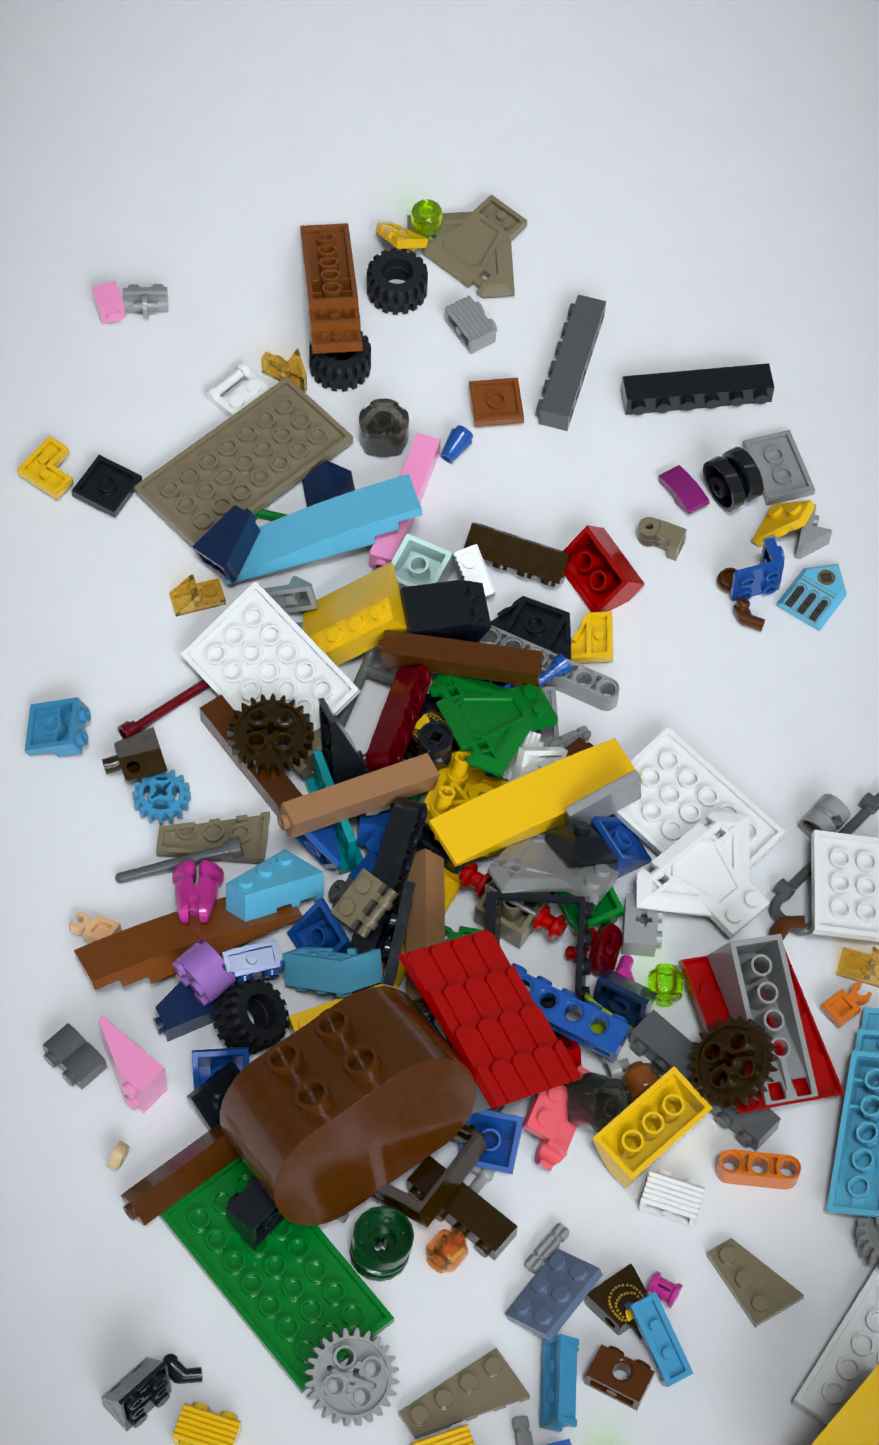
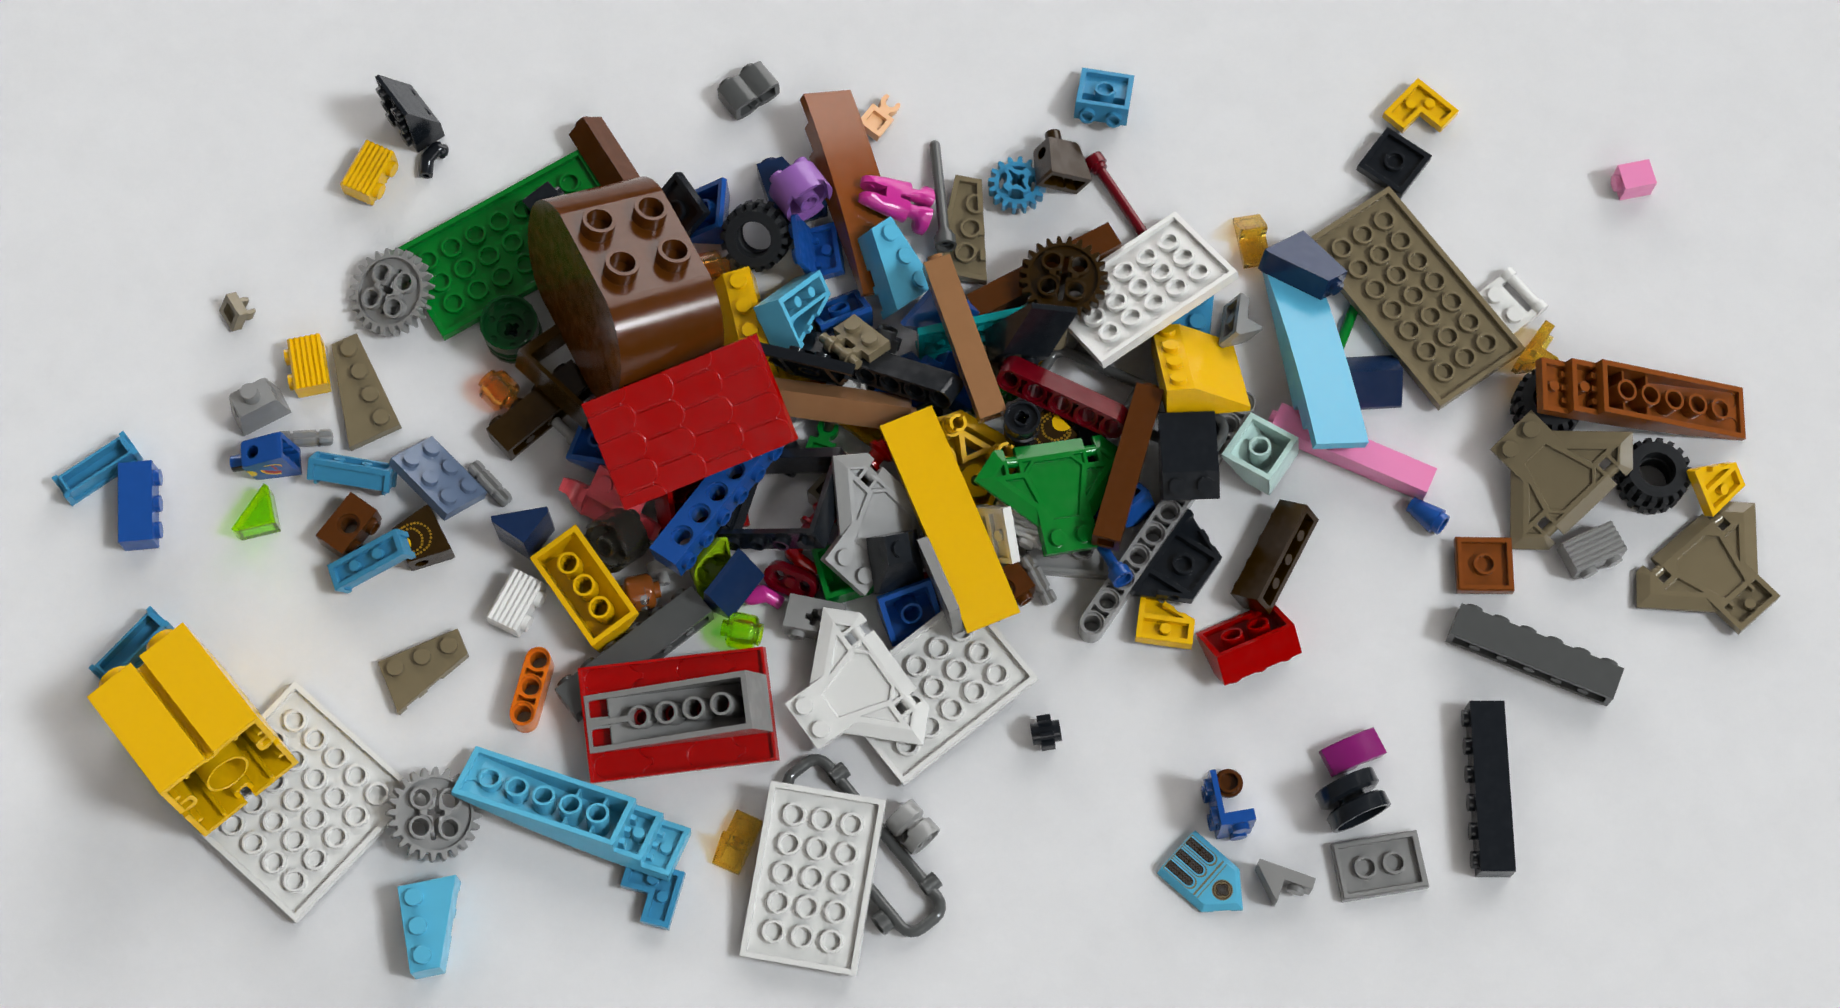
camera: 100 degrees right, 10 degrees up
(118, 1155) = (643, 120): tan tile -> none
(137, 1073) = (723, 129): bright pink slope -> none
(145, 299) = (1635, 216): light grey hips -> none
(383, 428) = (1462, 434): clear smoke brick -> none
(410, 345) = (1557, 476): none -> dark tan plate
(426, 217) = (1739, 513): clear neon green head -> none
(474, 568) = (1247, 505): white brick -> none
(601, 1193) = (524, 530): none -> dark blue slope
(661, 1286) = (427, 581): dark pink bush -> none
(662, 536) = (1295, 710): dark tan leg -> none
(714, 720) = (1046, 732): none -> black gear
(738, 1084) = (647, 662): dark brown gear -> none
(745, 616) = (1180, 792): reddish brown arm -> none
(782, 519) = (1297, 850): yellow wing -> none
(785, 923) = (792, 761): reddish brown arm -> none
(844, 1006) = (695, 808): orange plate -> none

